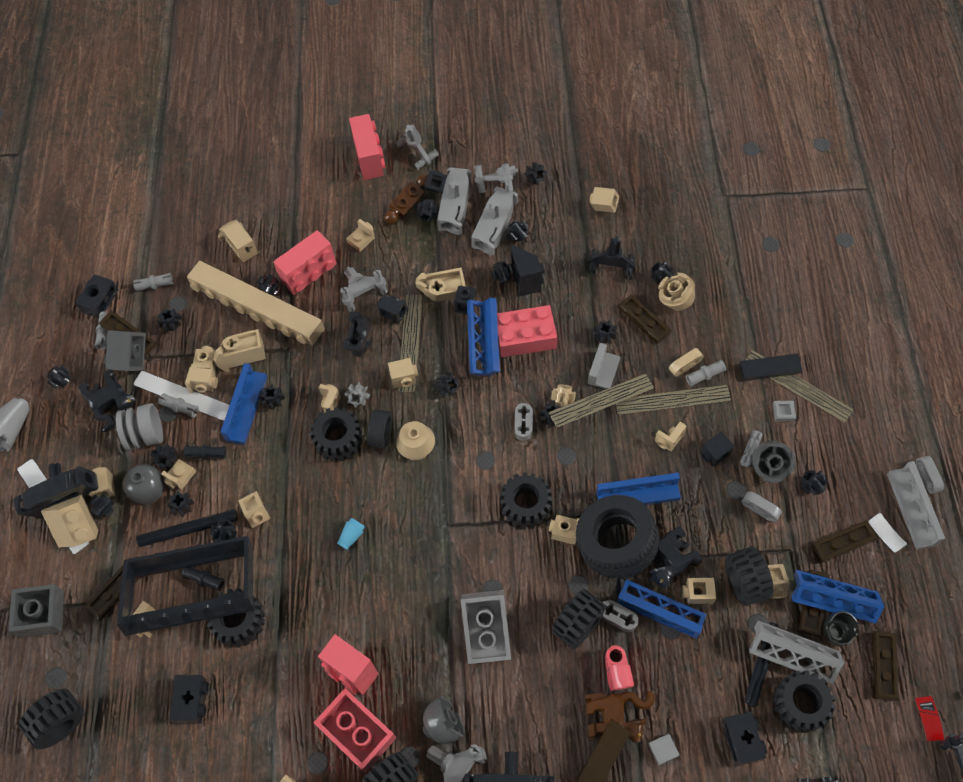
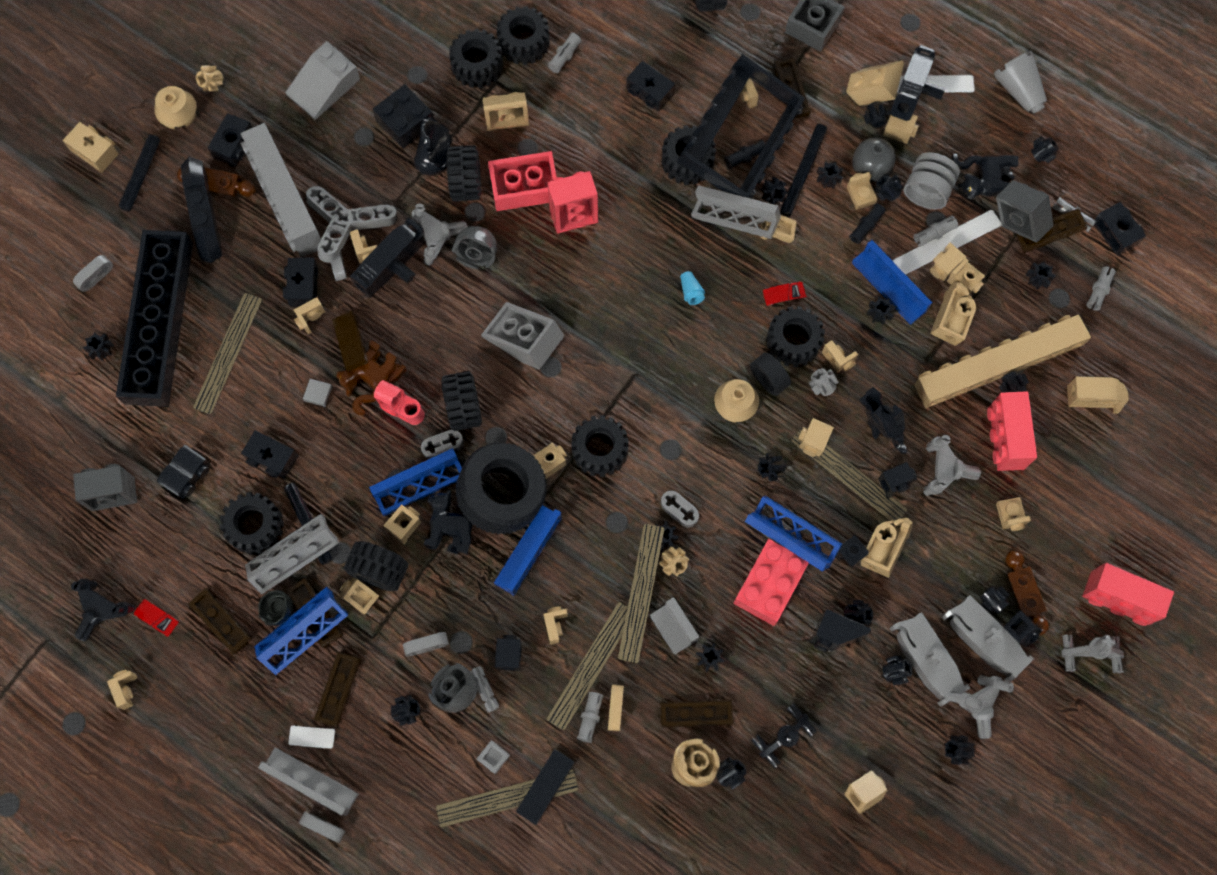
camera: 125 degrees right, 10 degrees up
(257, 547) = (736, 204): none -> light grey fence
(304, 471) = (784, 293): none -> red sticker

